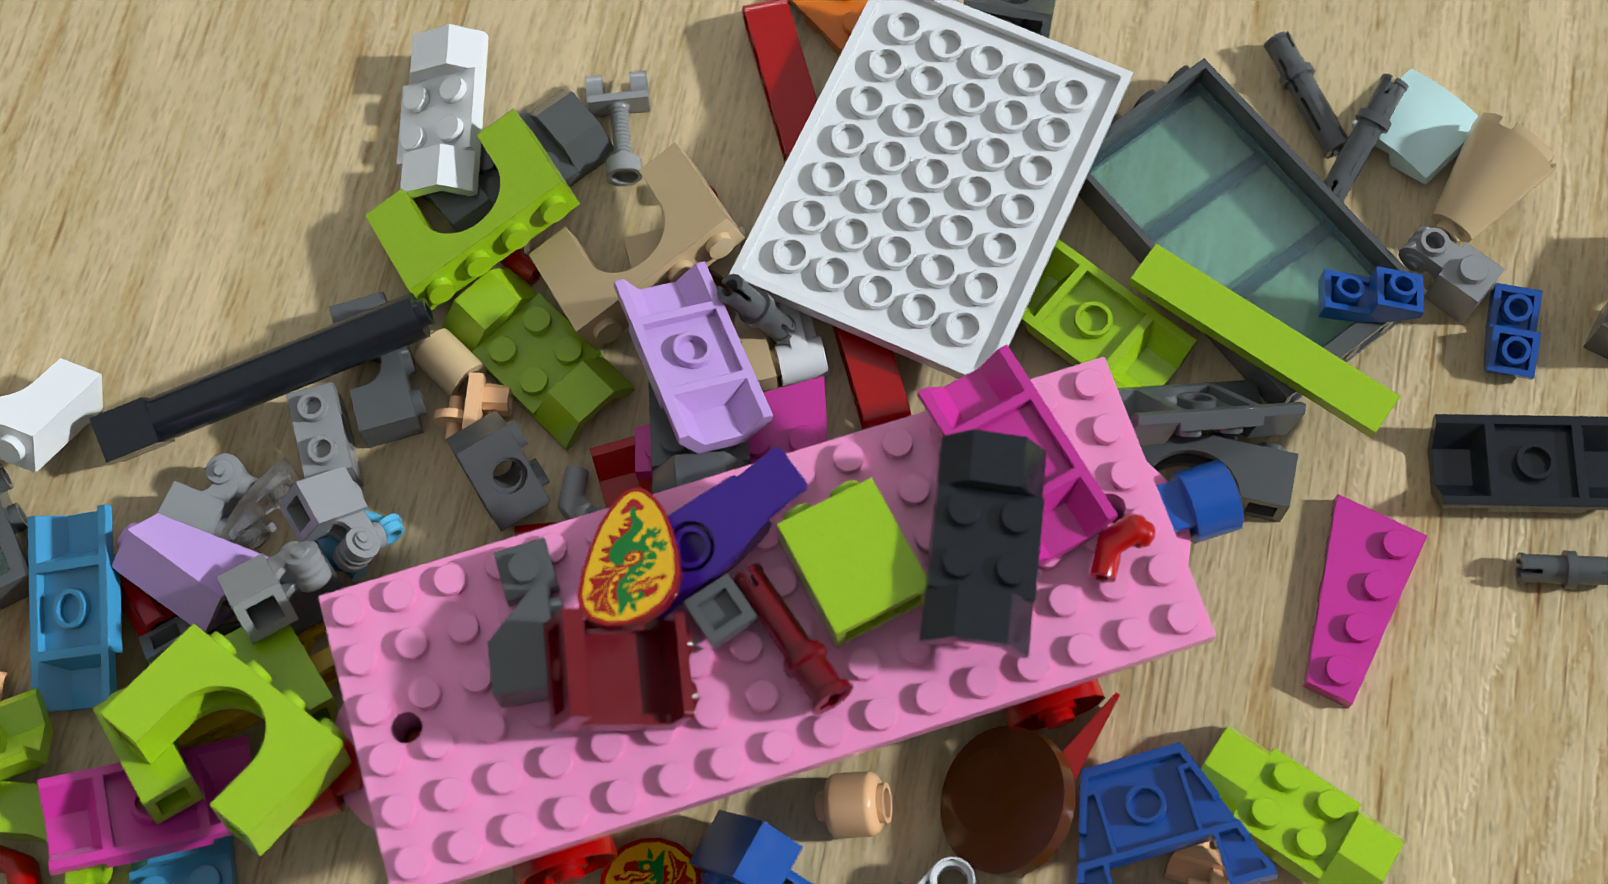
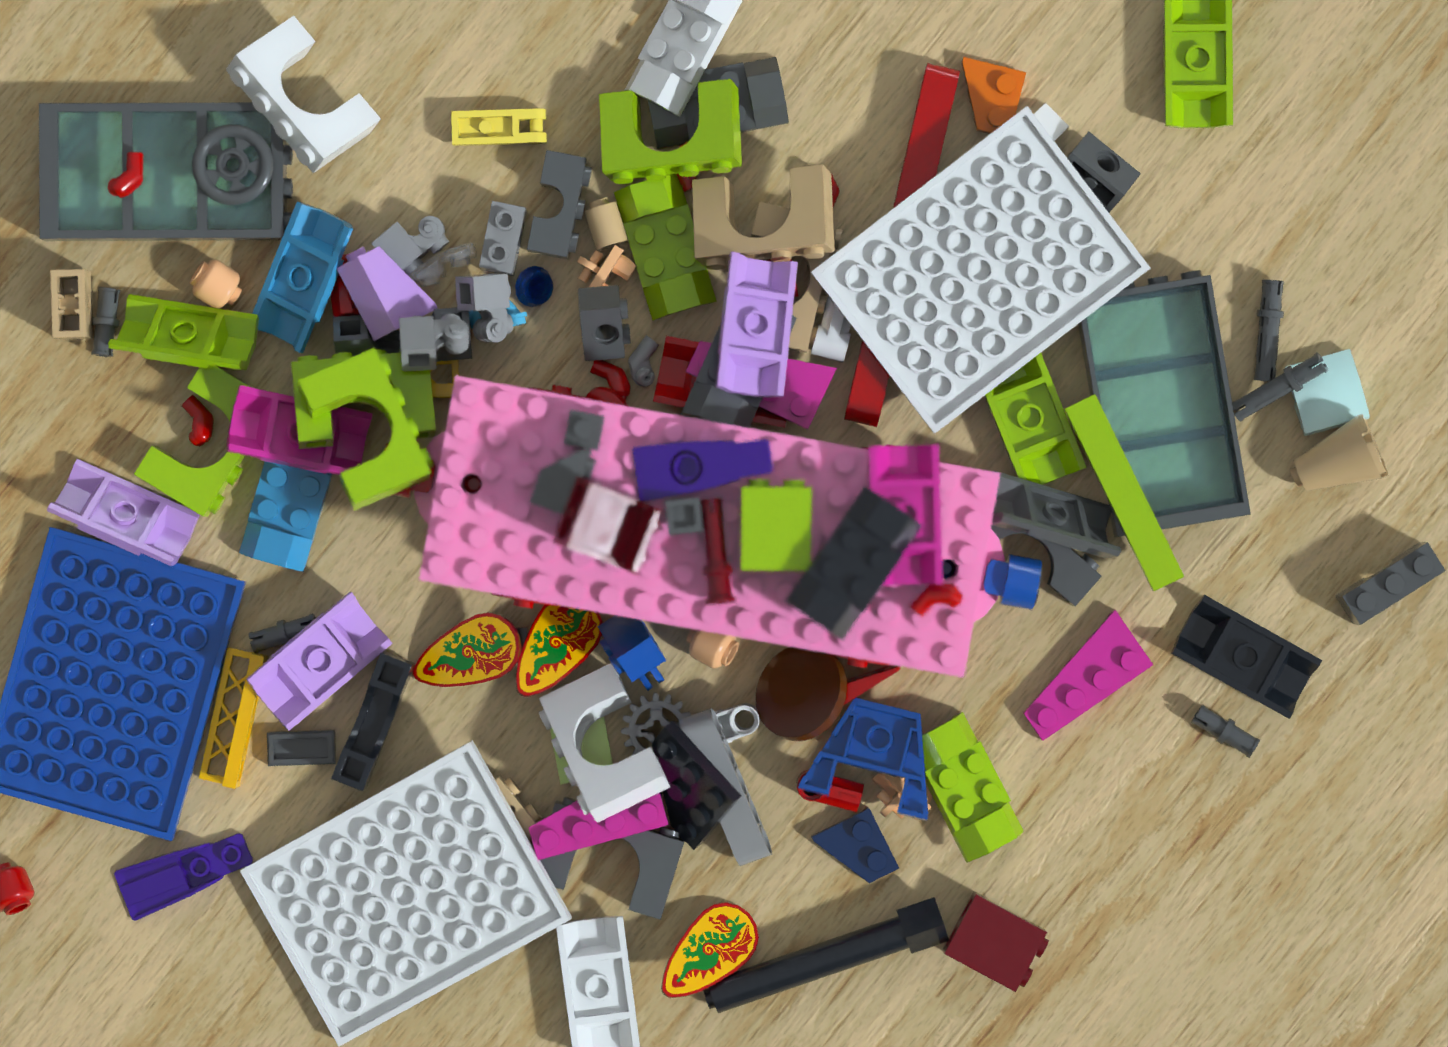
camera: 30 degrees right, 20 degrees up
(158, 420) = (399, 169): black brick -> none
(260, 320) = (497, 127): none -> light yellow plate
(393, 479) = (534, 286): none -> clear blue hat
(623, 164) = (788, 140): light grey bar -> none
(630, 565) = (645, 464): shield -> none
(756, 308) = (815, 307): dark grey pin -> none
(1380, 298) = (1209, 500): blue slope -> none
(1459, 273) = (1280, 513): light grey brick -> none
(1512, 331) = (1294, 563): blue slope -> none

